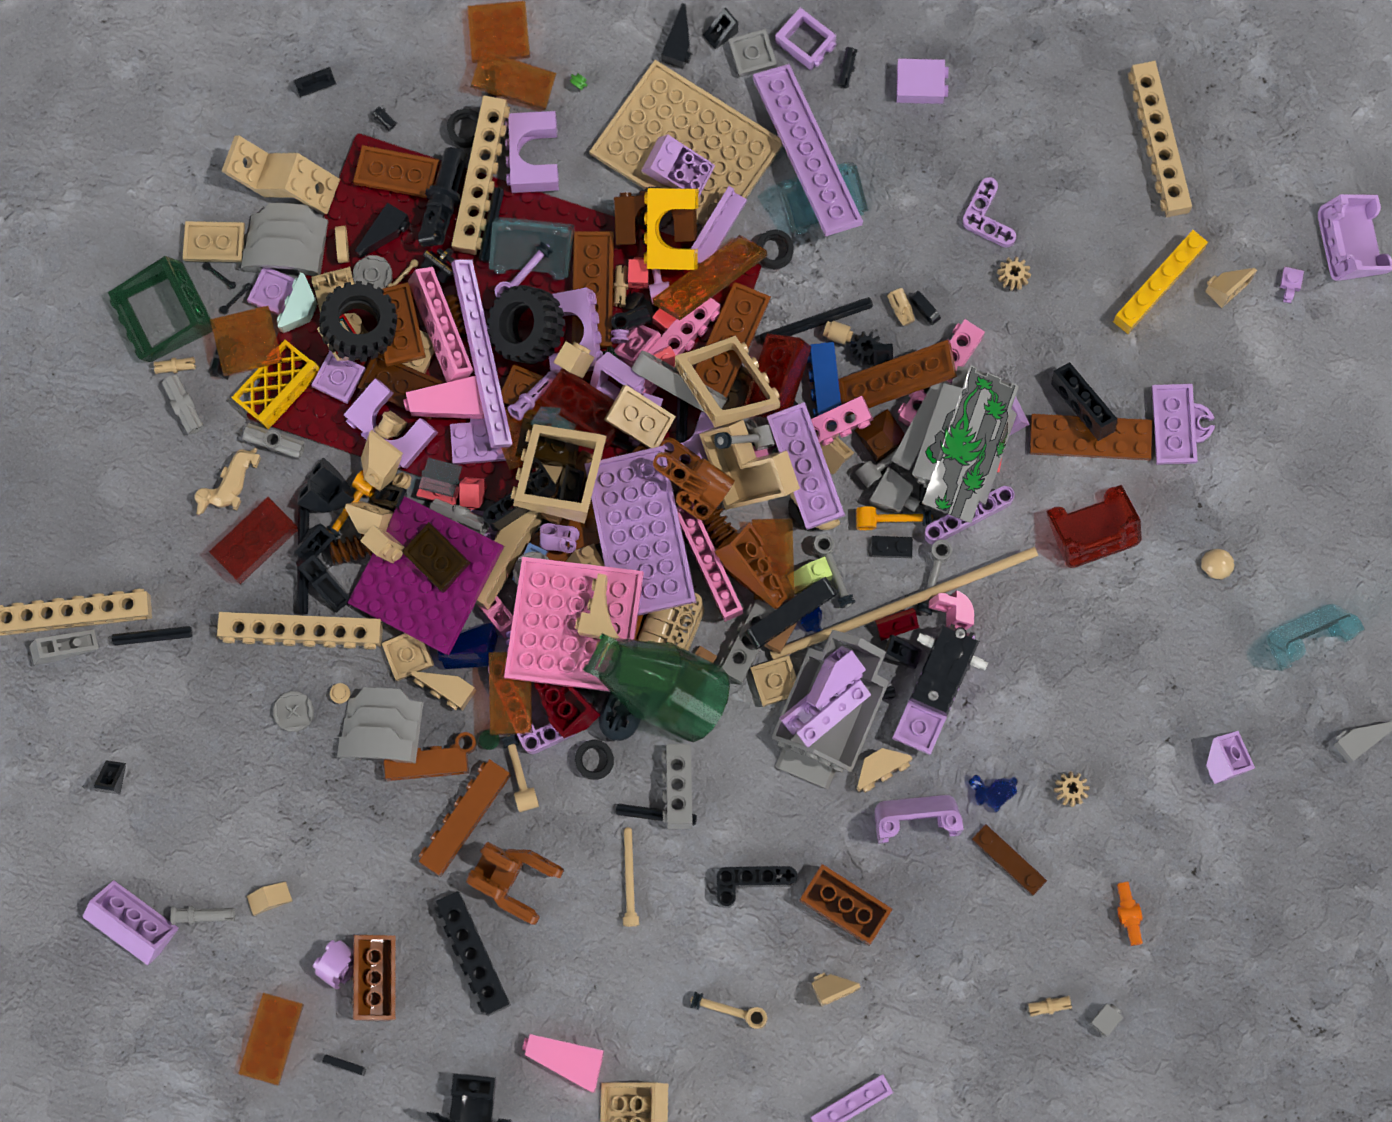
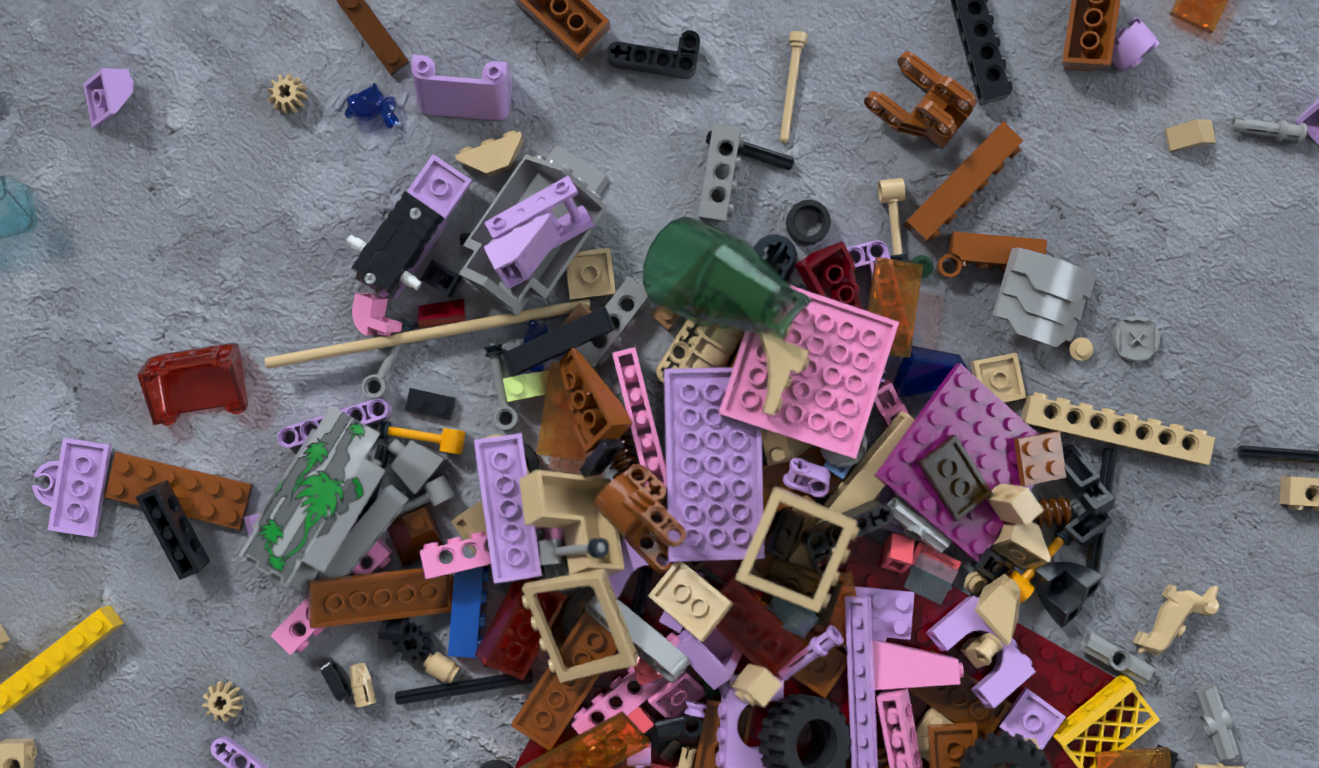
camera: 170 degrees left, 10 degrees up
(254, 540) = (1156, 543): clear red brick -> none
(364, 591) = (1040, 458): none -> plate
(451, 688) = (957, 331): tan slope -> none
(736, 519) = (601, 457): none -> black plate
(1217, 563) = (69, 317): tan hair -> none

